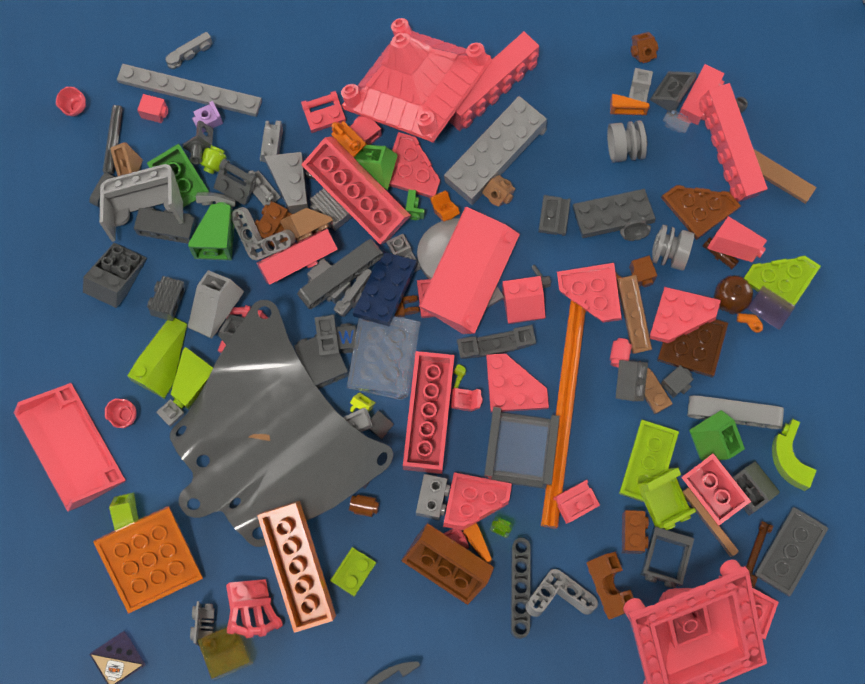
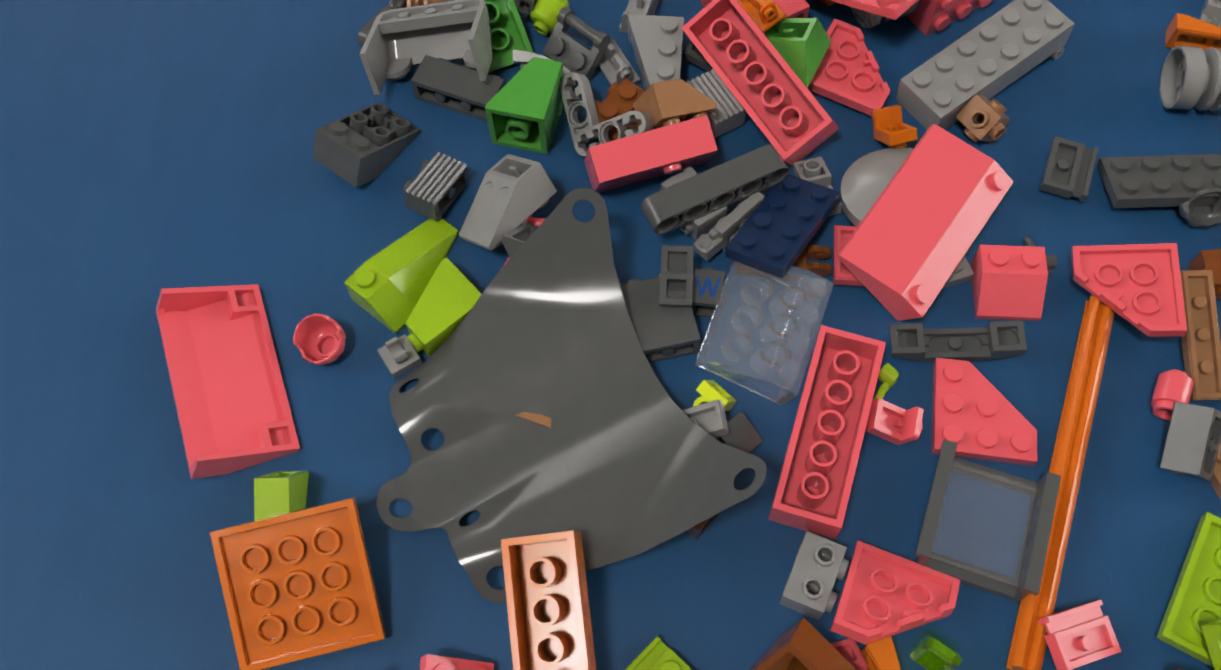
camera: 15 degrees right, 10 degrees down
(364, 505) = (690, 567): dark orange brick -> none
(412, 206) = (842, 116): bright green bracket -> none

